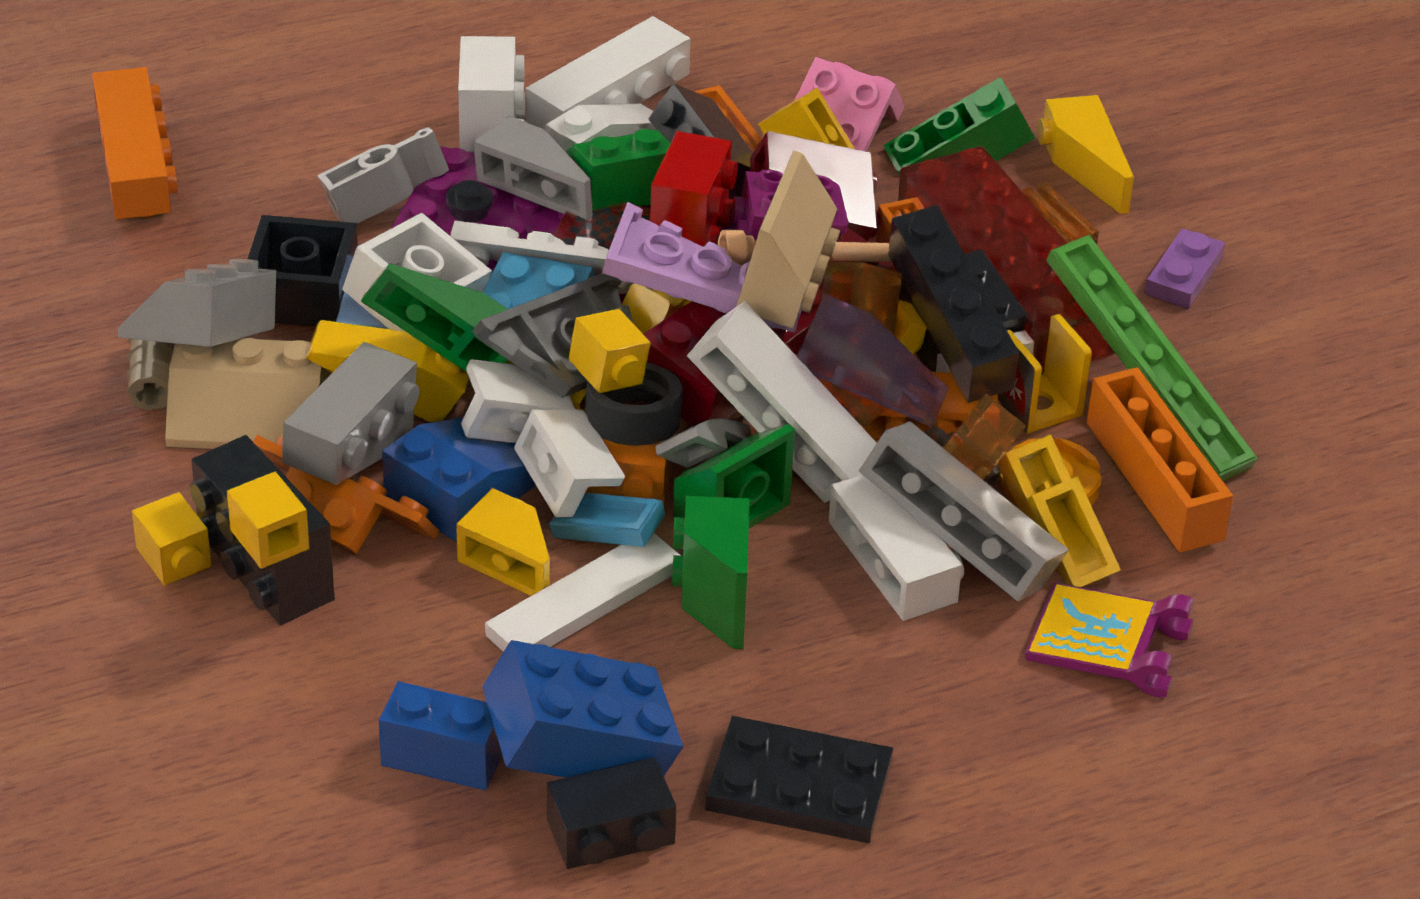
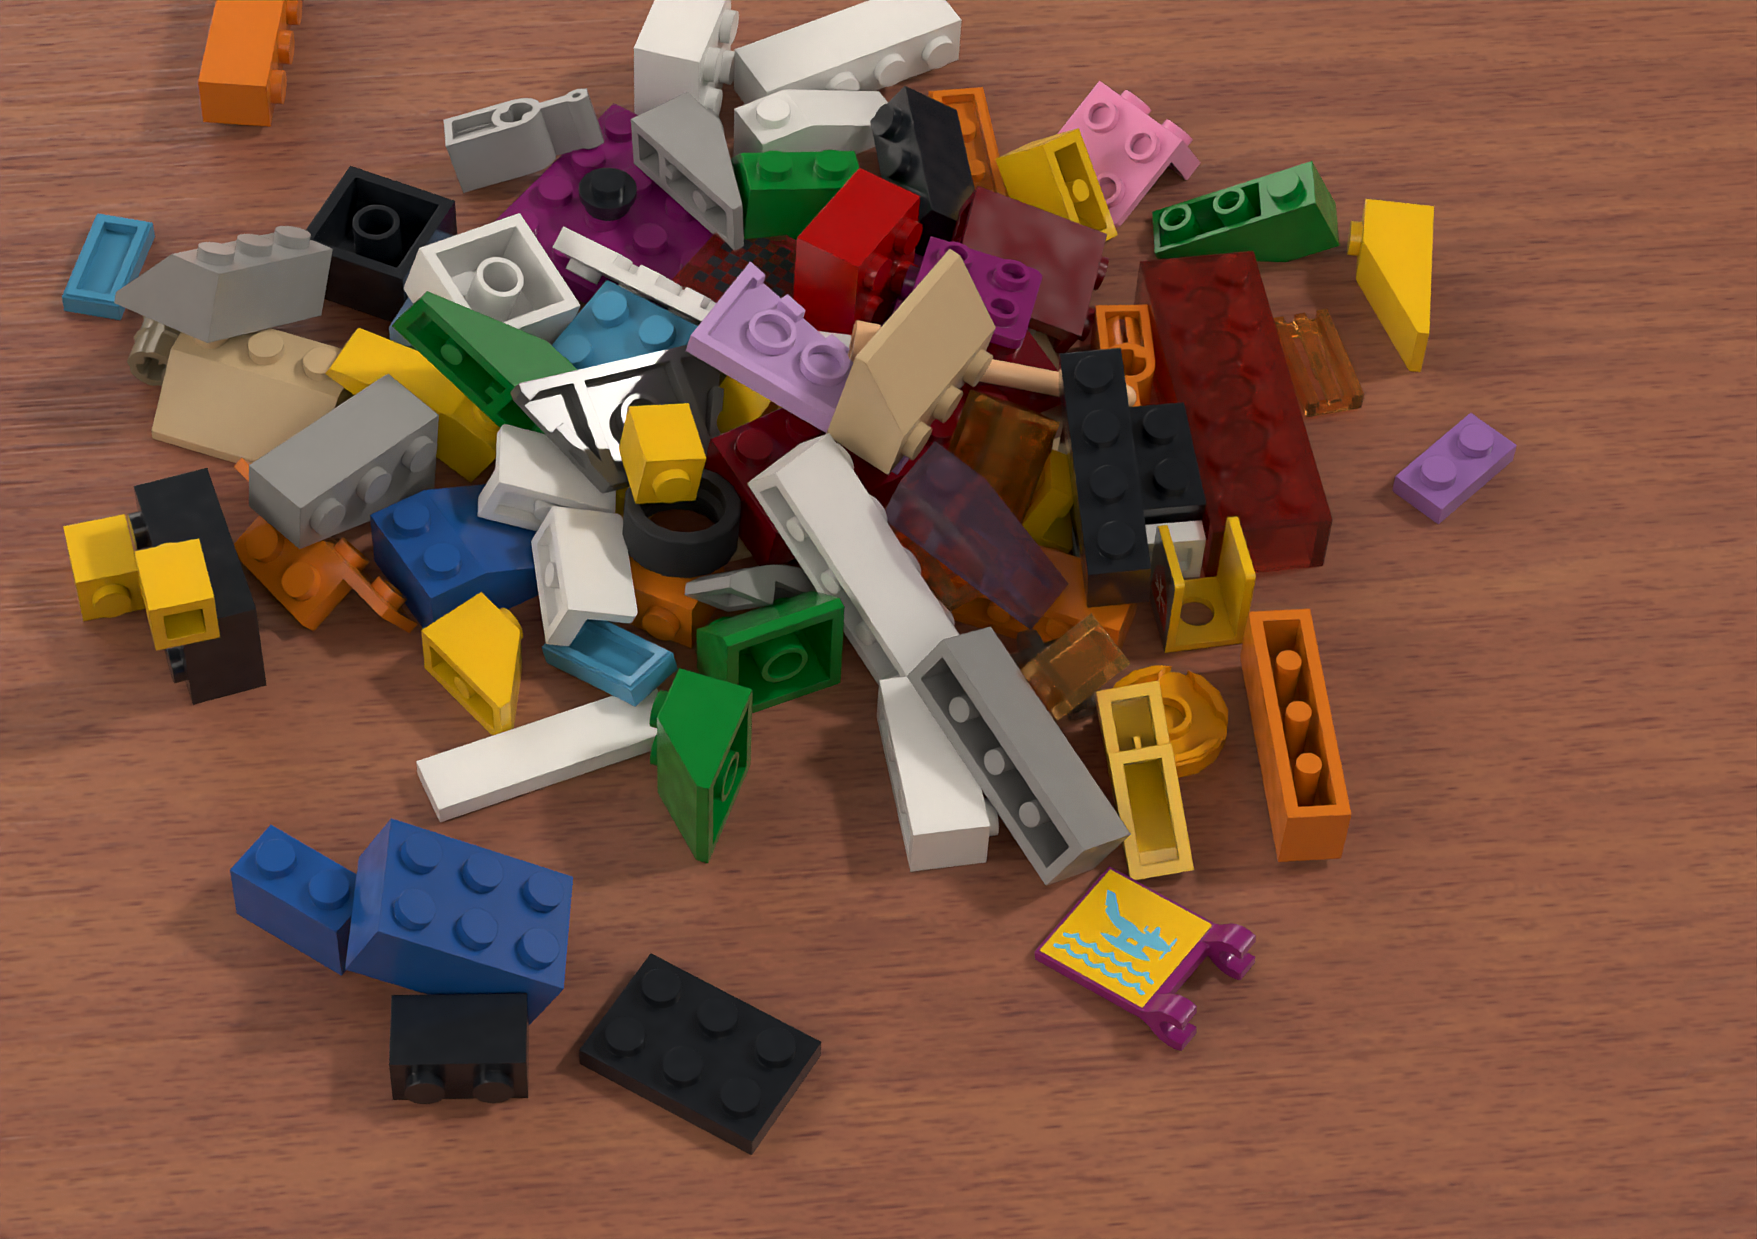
camera: 15 degrees right, 10 degrees up
(79, 333) = (106, 263): none -> dark azure tile
(1143, 345) = (1340, 597): bright green tile -> none

